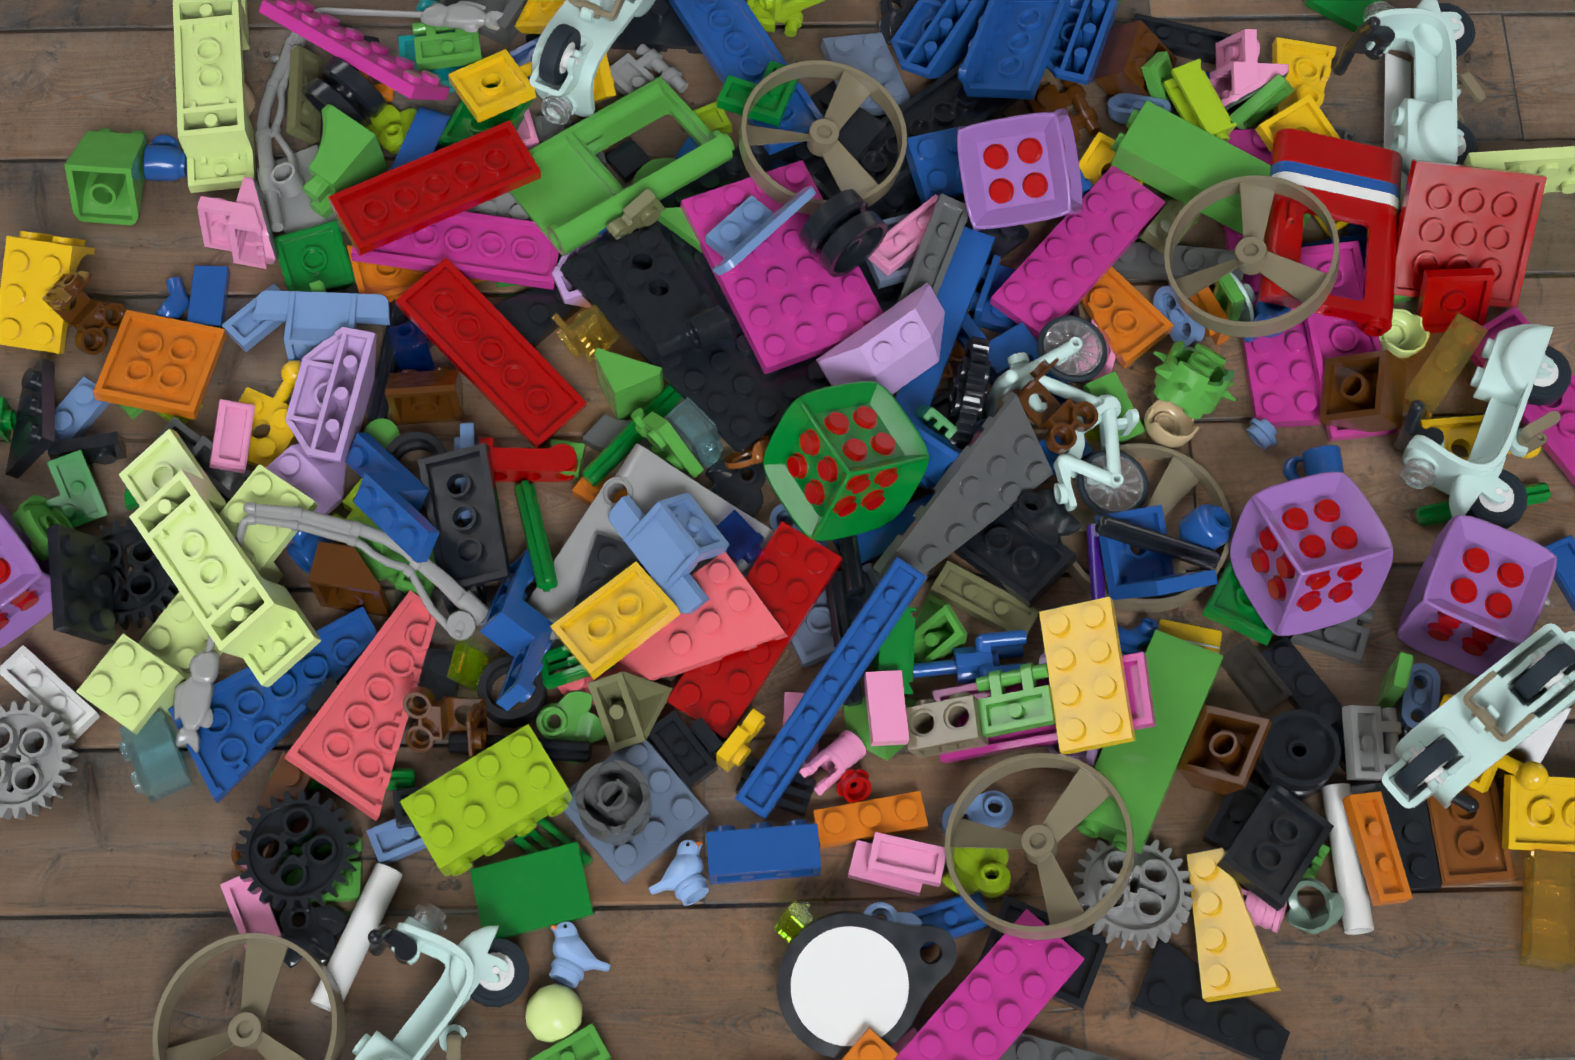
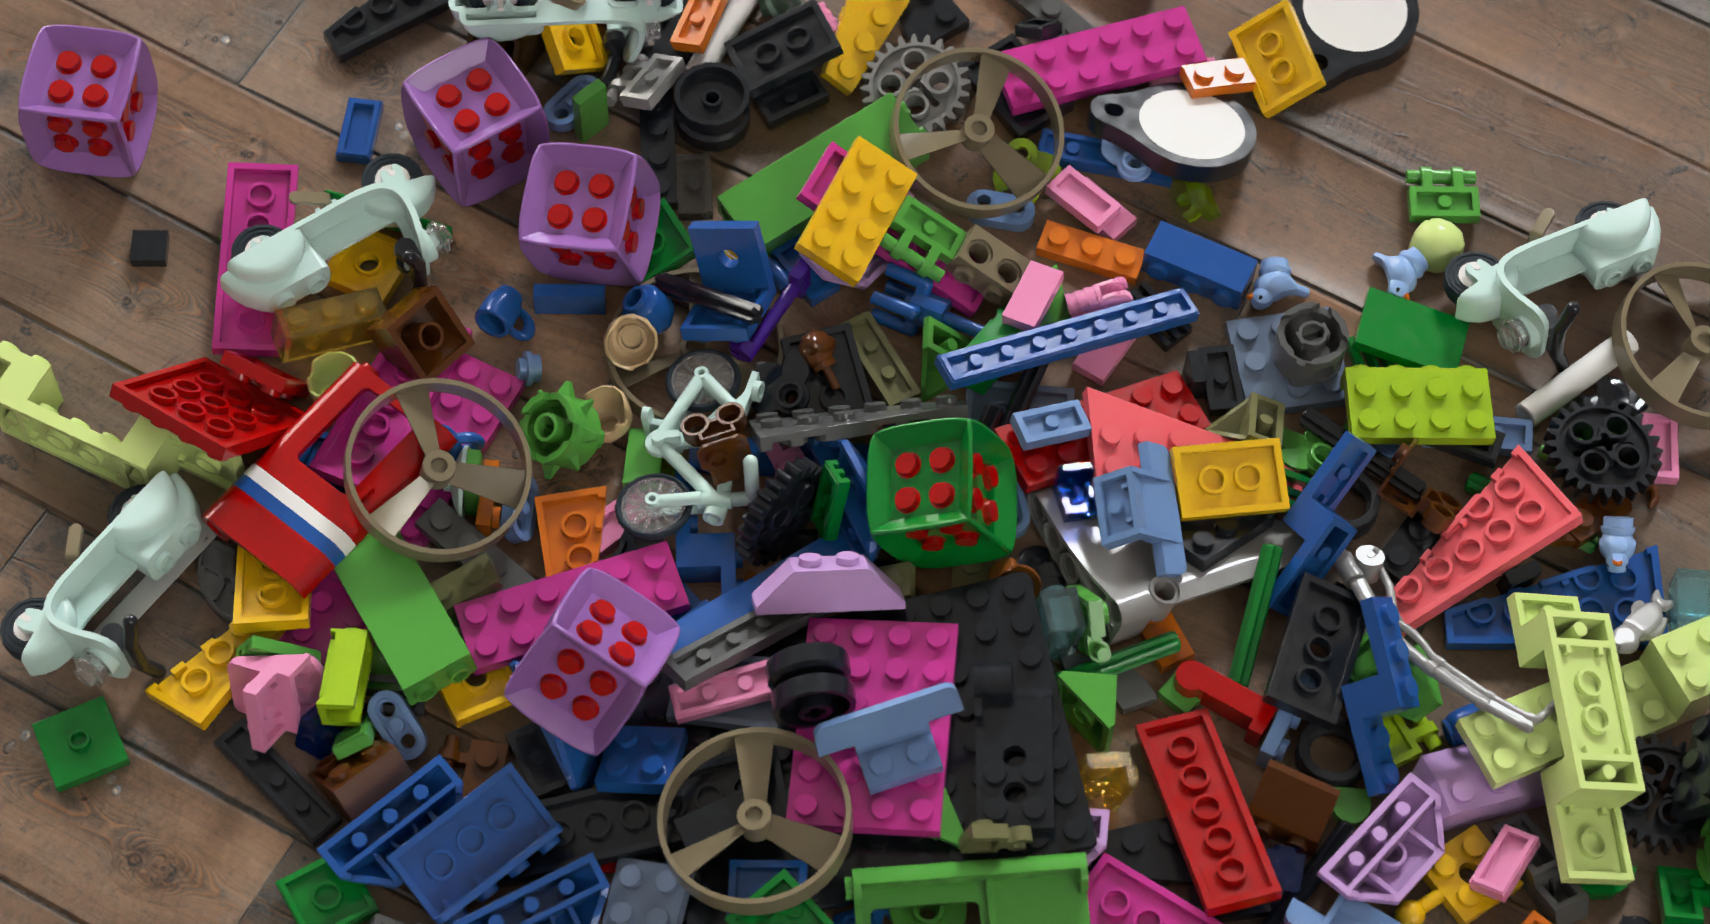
camera: 150 degrees left, 5 degrees down
(248, 768) = (1617, 542): none -> light blue animal
(344, 580) = (1460, 649): reddish brown slope -> none
(467, 665) = (1378, 536): clear neon green tile -> none
(736, 747) = (1168, 359): yellow plate -> none
(794, 576) = (1050, 424): none -> medium blue plate
(859, 790) = (1088, 276): red plate -> none
(1034, 550) = (817, 351): none -> reddish brown piece
(1061, 1024) = (1038, 28): none -> black tile
(1196, 479) = (630, 341): none -> tan hair
(1223, 750) = (768, 127): reddish brown slope -> none

